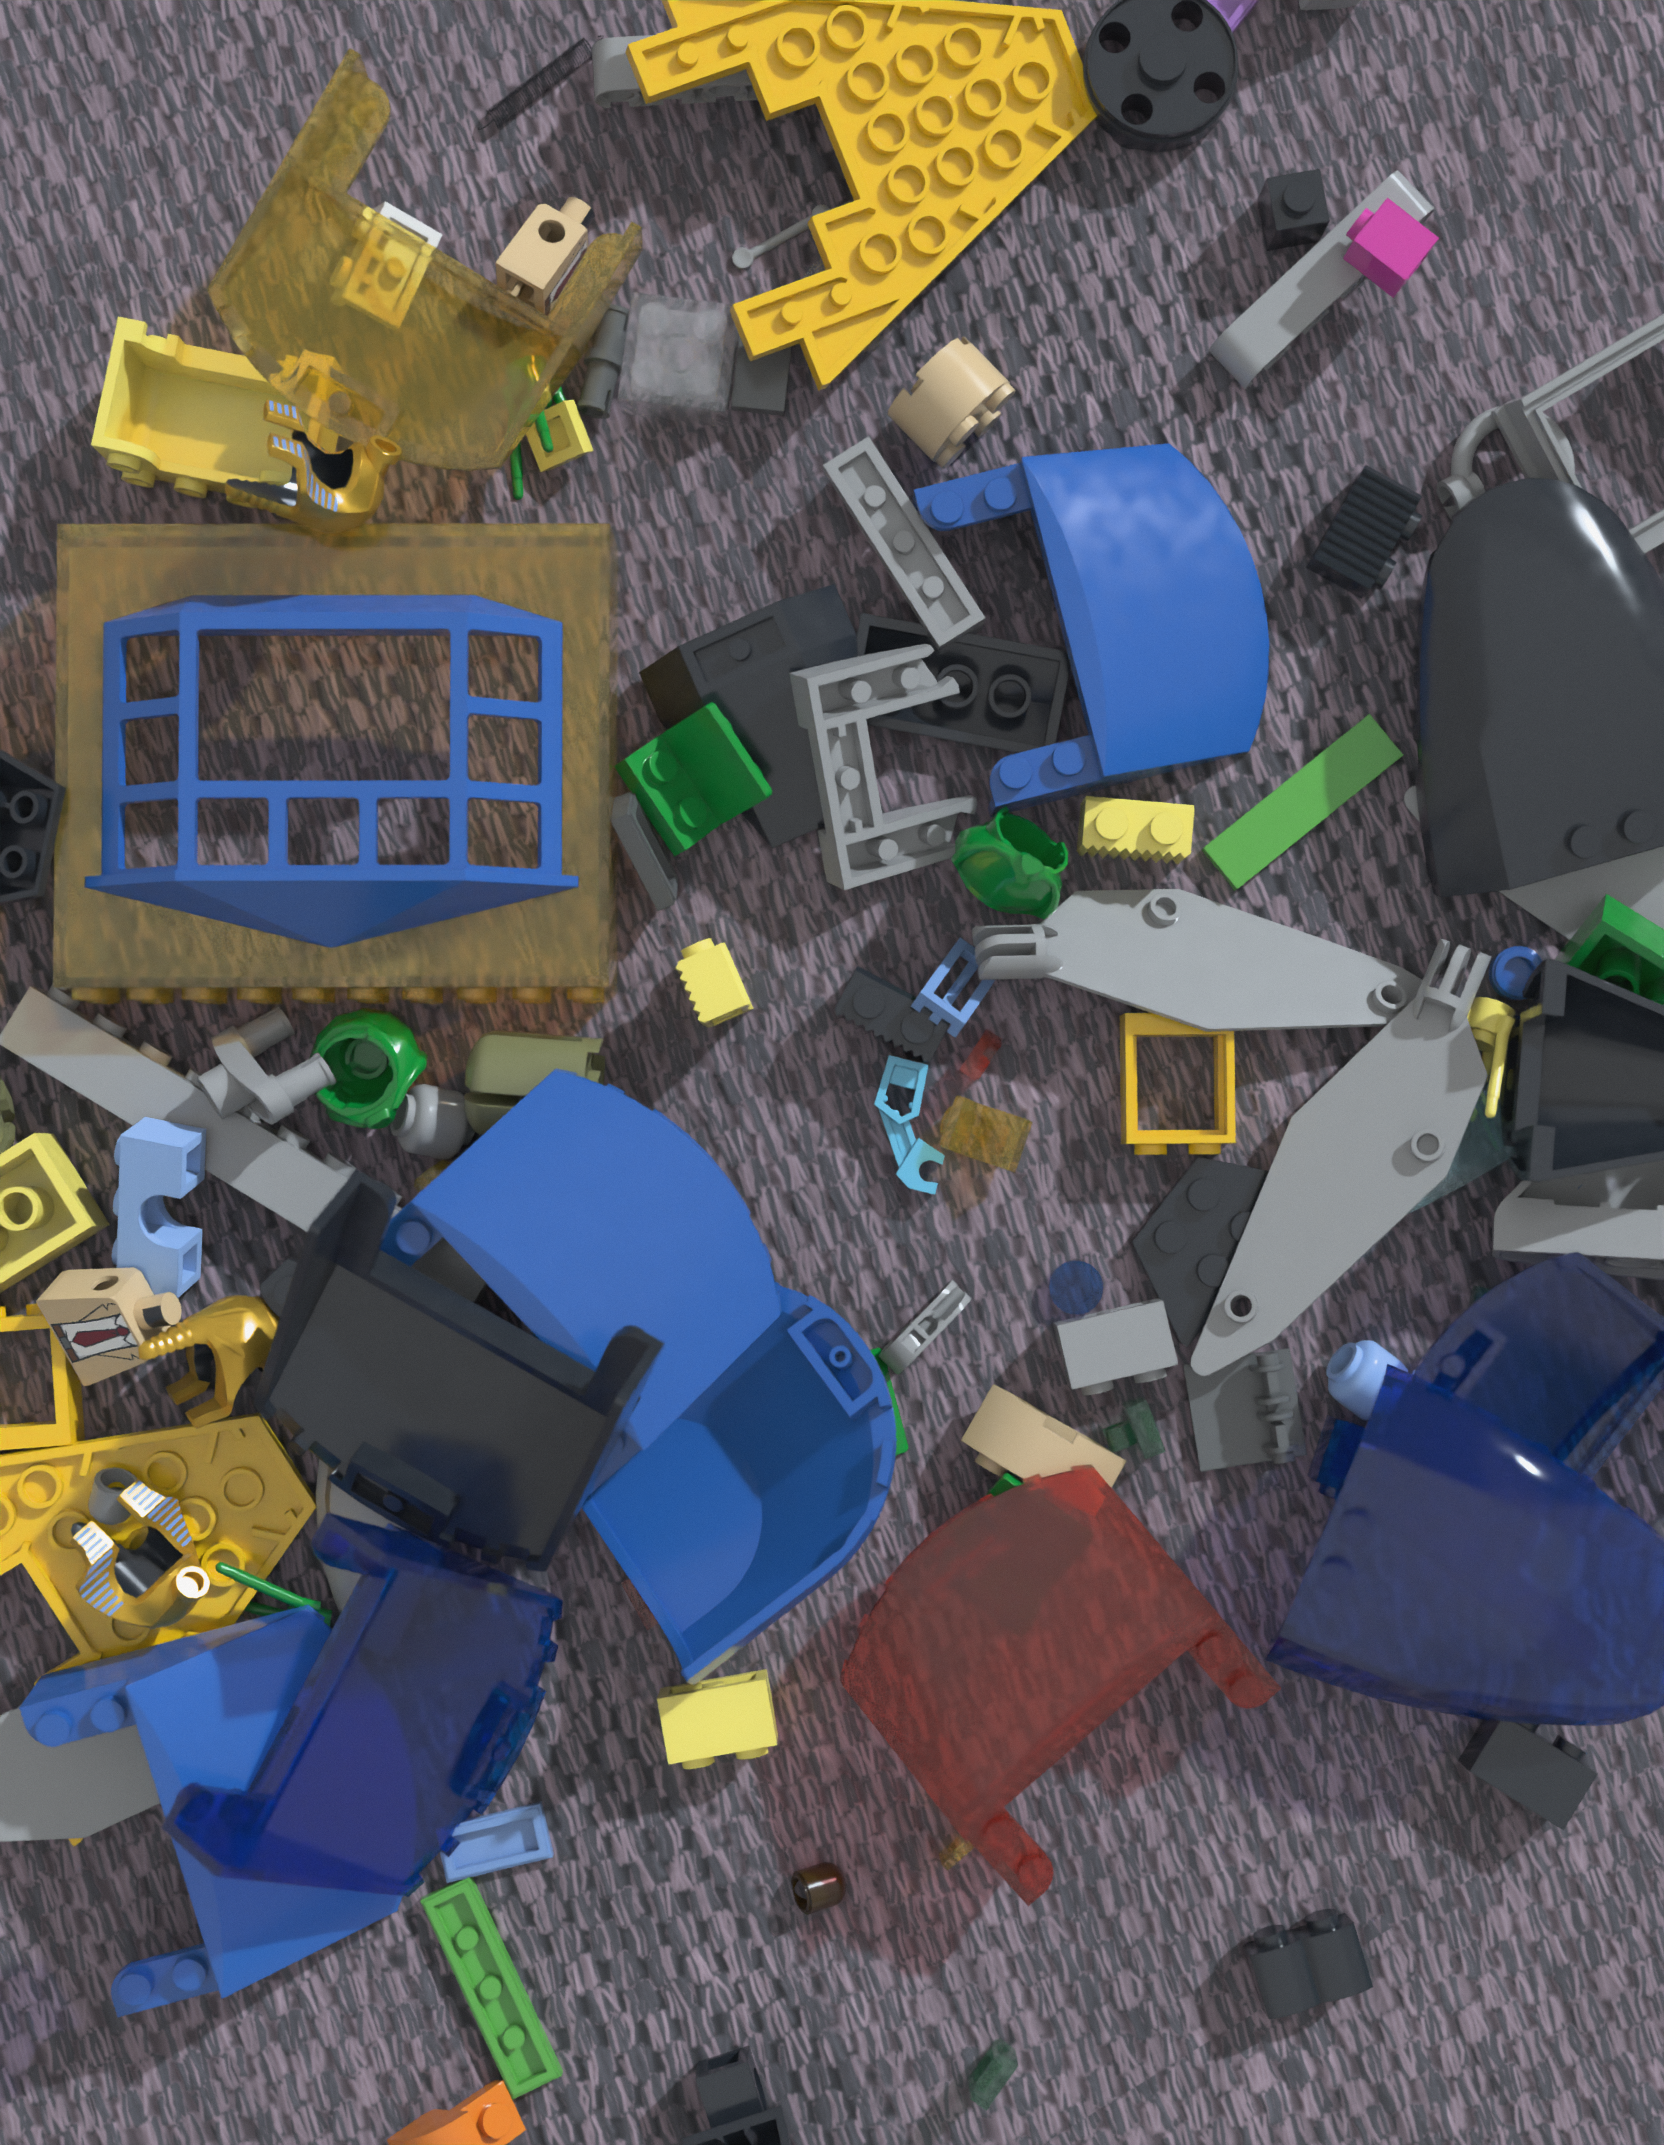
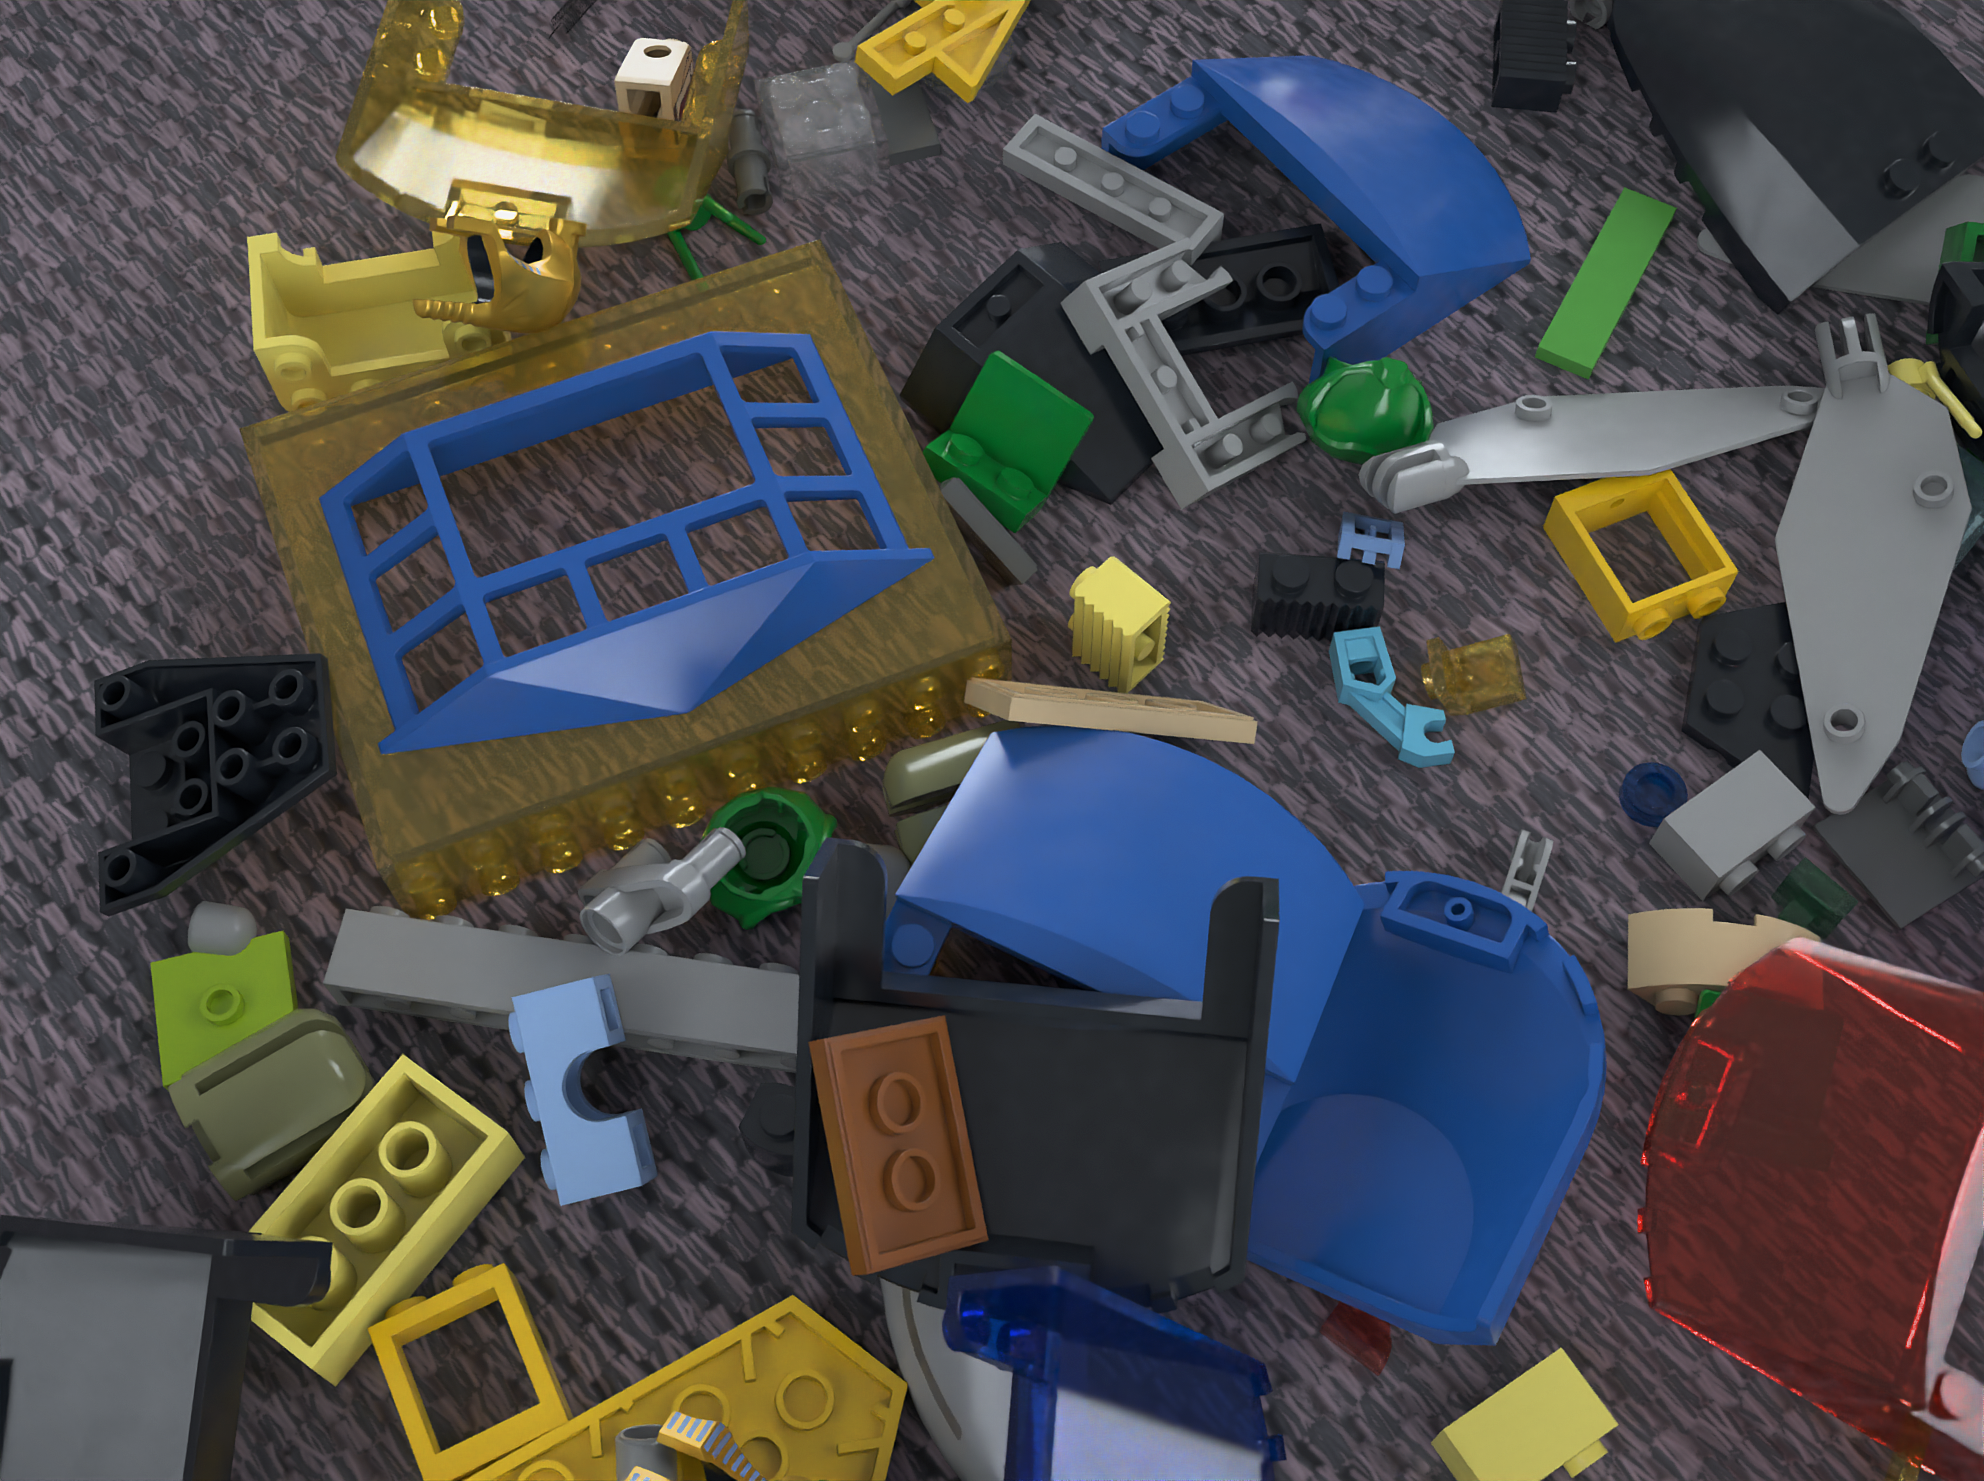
camera: 20 degrees left, 25 degrees down
(105, 1318) = (566, 1243): tan torso -> none
(233, 1332) = (730, 1193): pearl gold piece -> none
(337, 1392) = (898, 1144): none -> dark orange tile
(567, 436) = (729, 241): light yellow plate -> none
(663, 1071) = (1109, 710): none -> tan tile
(951, 400) = (1097, 67): tan brick -> none
(980, 1056) = (1425, 612): clear red tile -> none
(1135, 829) = (1468, 347): light yellow brick -> none
(1511, 971) = (1905, 340): blue tile -> none

